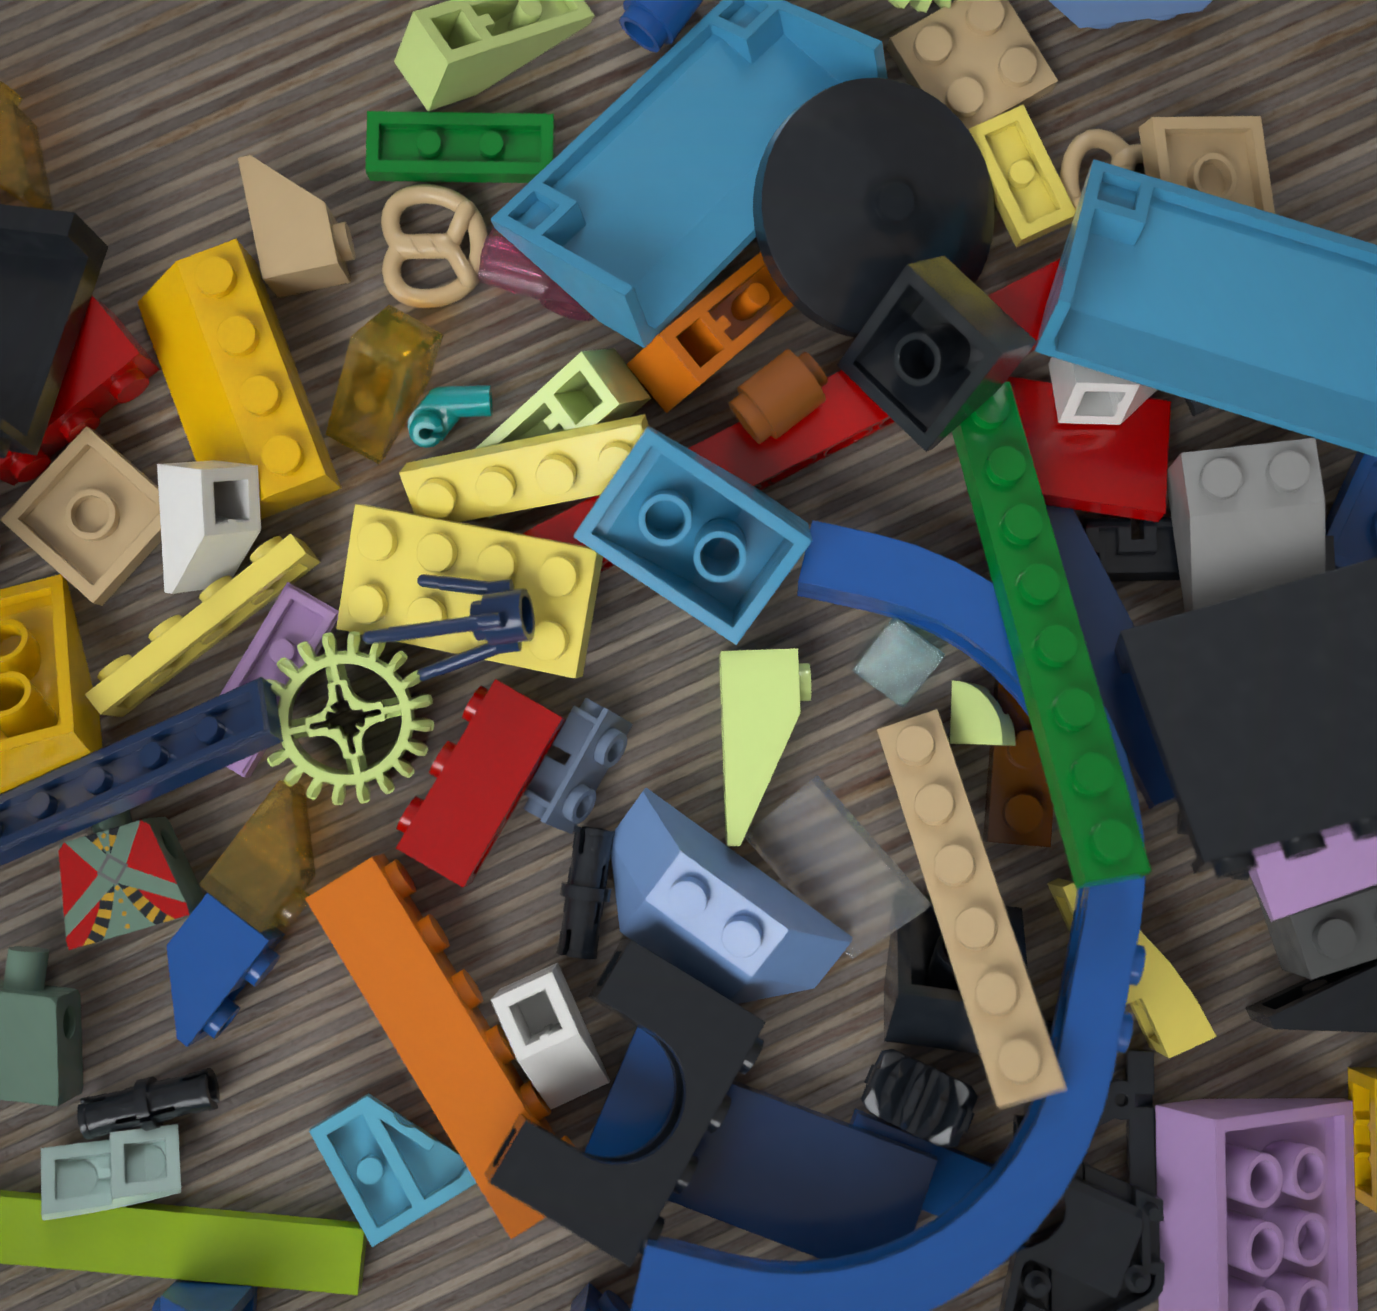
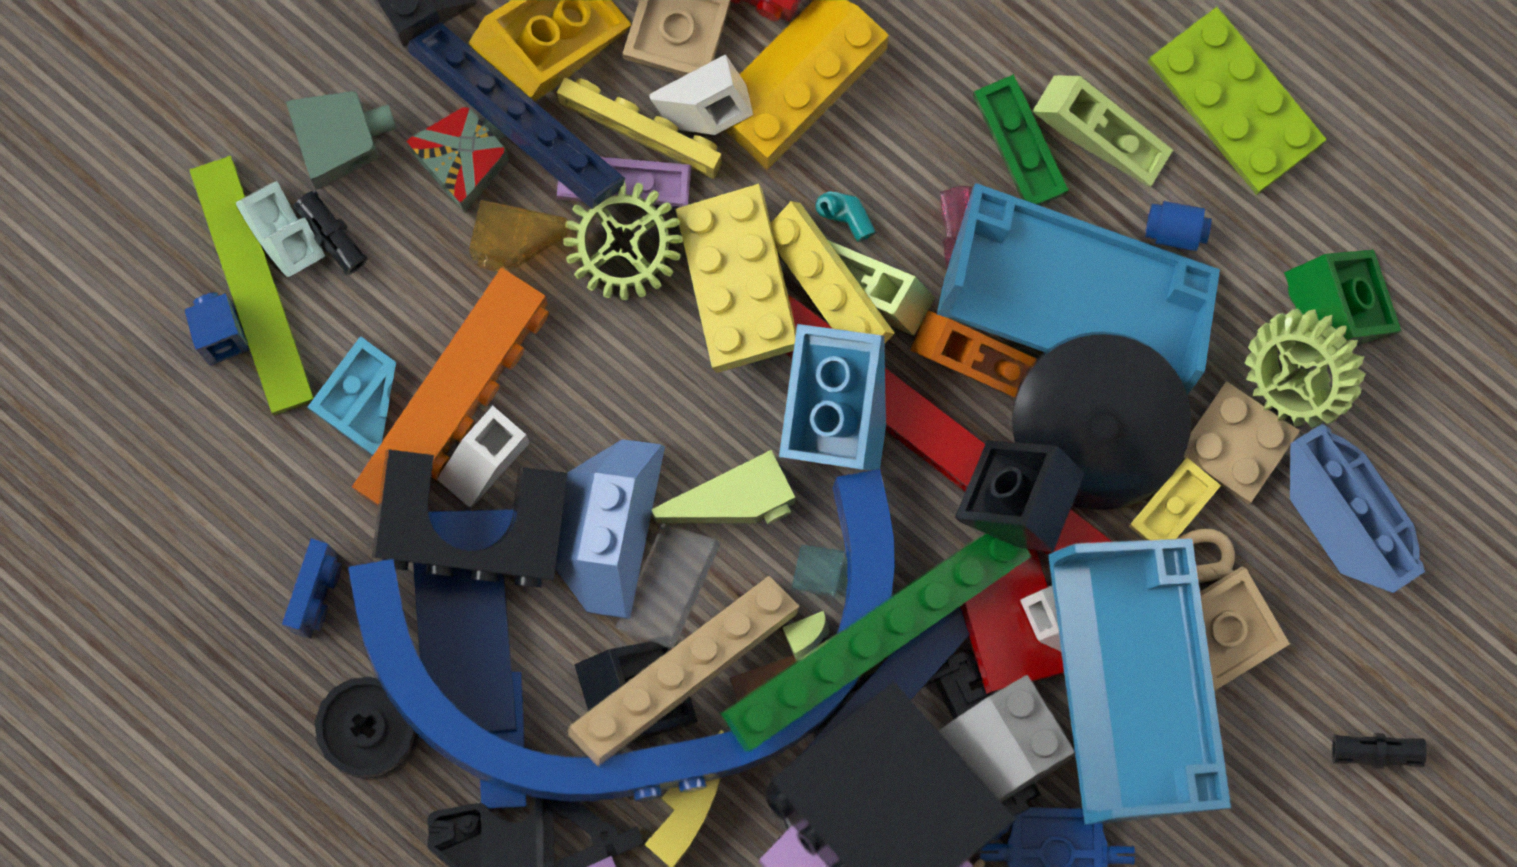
camera: 70 degrees right, 5 degrees down
(210, 966) = (434, 231): blue slope -> none
(294, 233) = (913, 65): tan slope -> none
(382, 381) = (844, 164): clear yellow slope -> none
(432, 246) = (940, 137): tan piece -> none
(478, 782) = (621, 341): red brick -> none
(501, 618) = (727, 303): dark blue plant -> none
(566, 792) = (639, 399): sand blue hinge -> none
(585, 892) = (581, 439): black pin -> none
(779, 395) = (947, 411): dark orange brick -> none
(919, 1098) = (548, 700): black gear -> none

